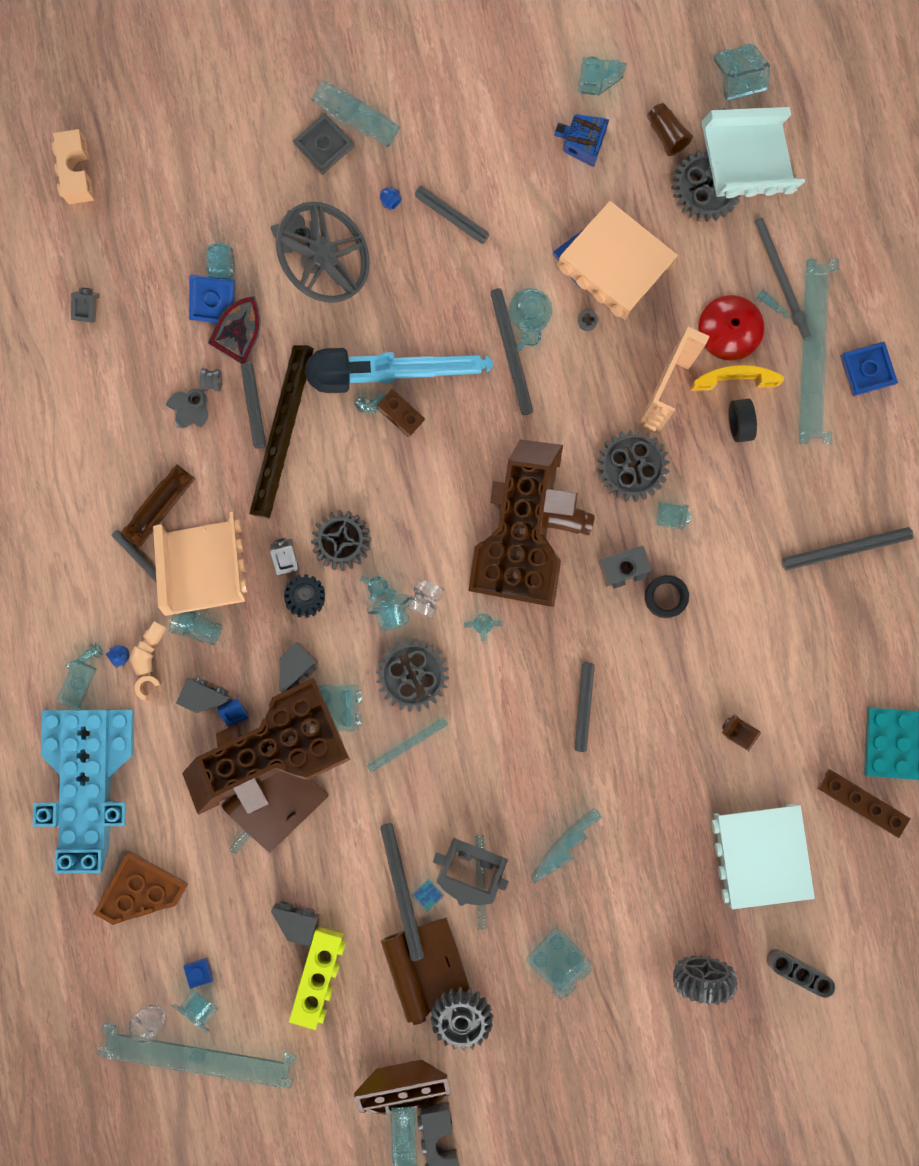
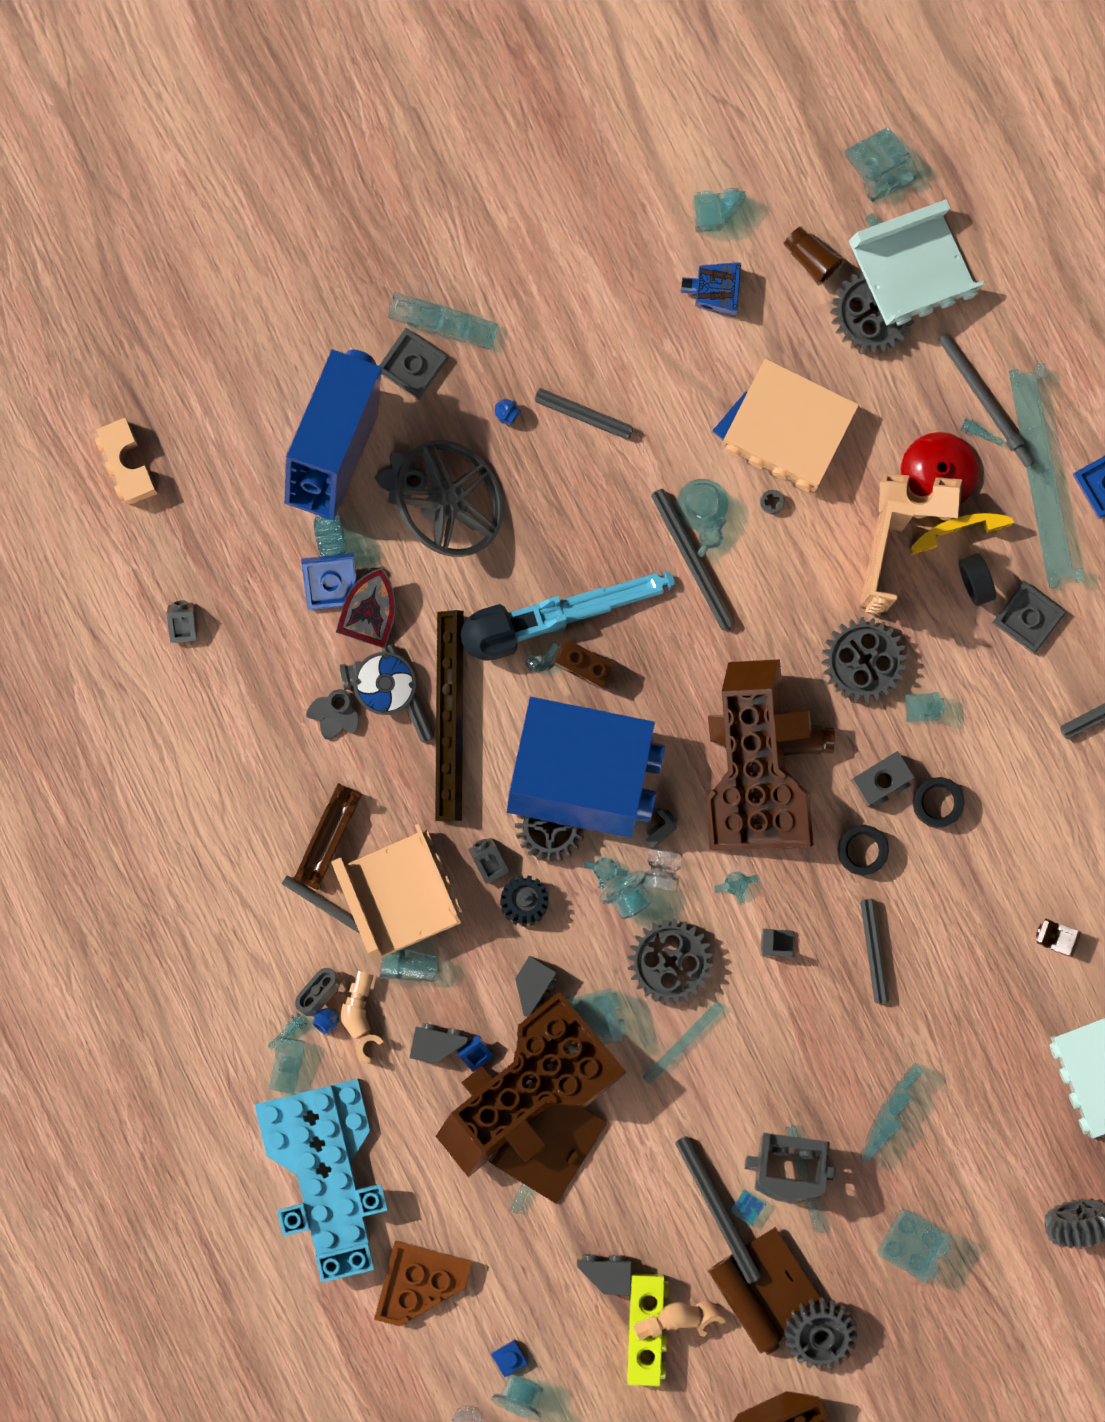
camera: 15 degrees left, 0 degrees up
(117, 630) = (318, 991): none -> dark grey plate
(234, 391) = (384, 683): none -> shield
(236, 170) = (332, 433): none -> blue brick
(347, 975) = (679, 1316): none -> light nougat piece
(377, 496) = (584, 768): none -> blue brick
(430, 567) = (658, 832): none -> dark grey bracket
(505, 681) = (777, 943): none -> dark grey panel
(607, 609) = (882, 846): none -> black tyre
(729, 350) = (942, 502): none -> light nougat arch
(777, 463) = (1029, 617): none -> dark grey tile

